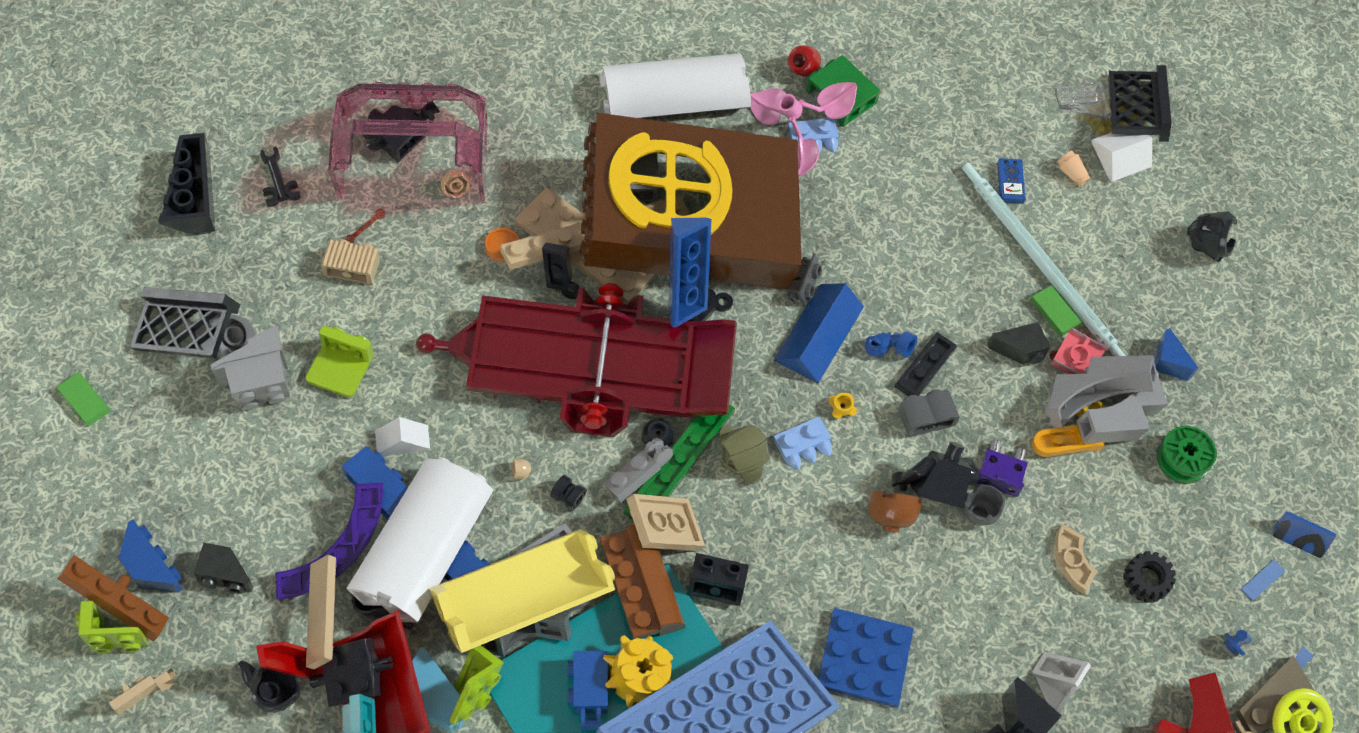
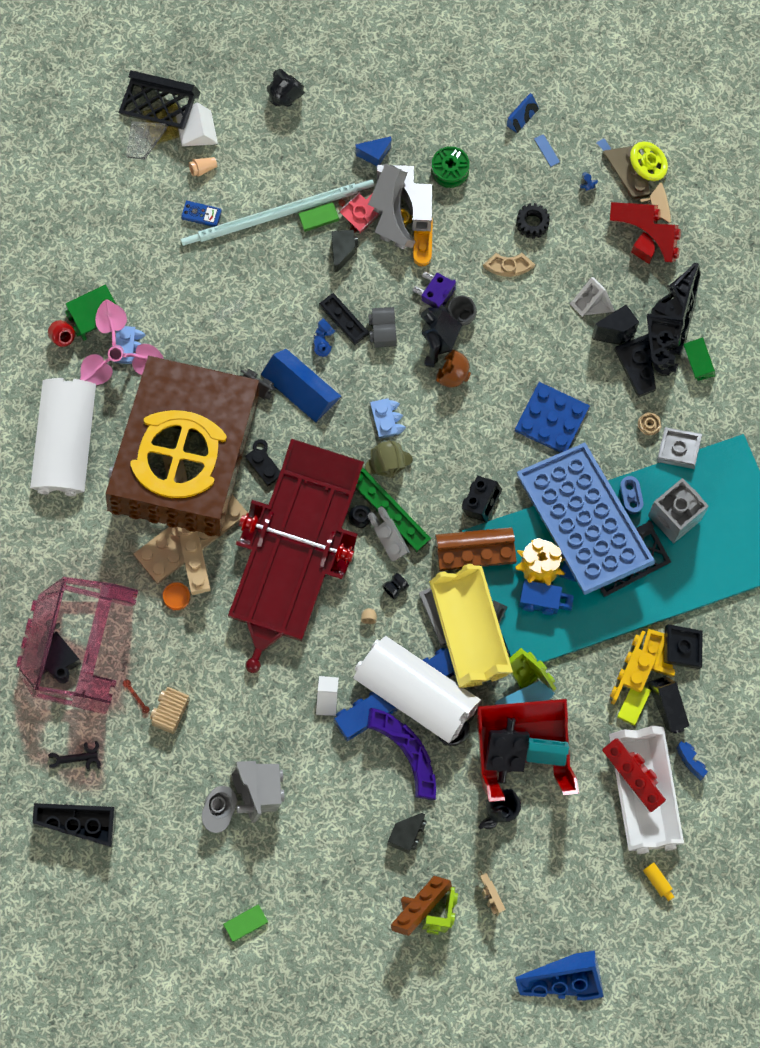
camera: 75 degrees left, 10 degrees up
(147, 562) = (389, 886): blue slope -> none
(191, 303) = (189, 830): black fence -> none
(321, 612) = (459, 764): tan tile -> none
(340, 361) = (257, 730): lime bracket -> none
(458, 189) = (115, 621): tan plate -> none
(558, 269) = (216, 555): black hinge -> none
(665, 522) = (437, 523): tan plate -> none
(688, 268) = (250, 461): blue slope -> none
(847, 400) = (364, 379): yellow plate -> none

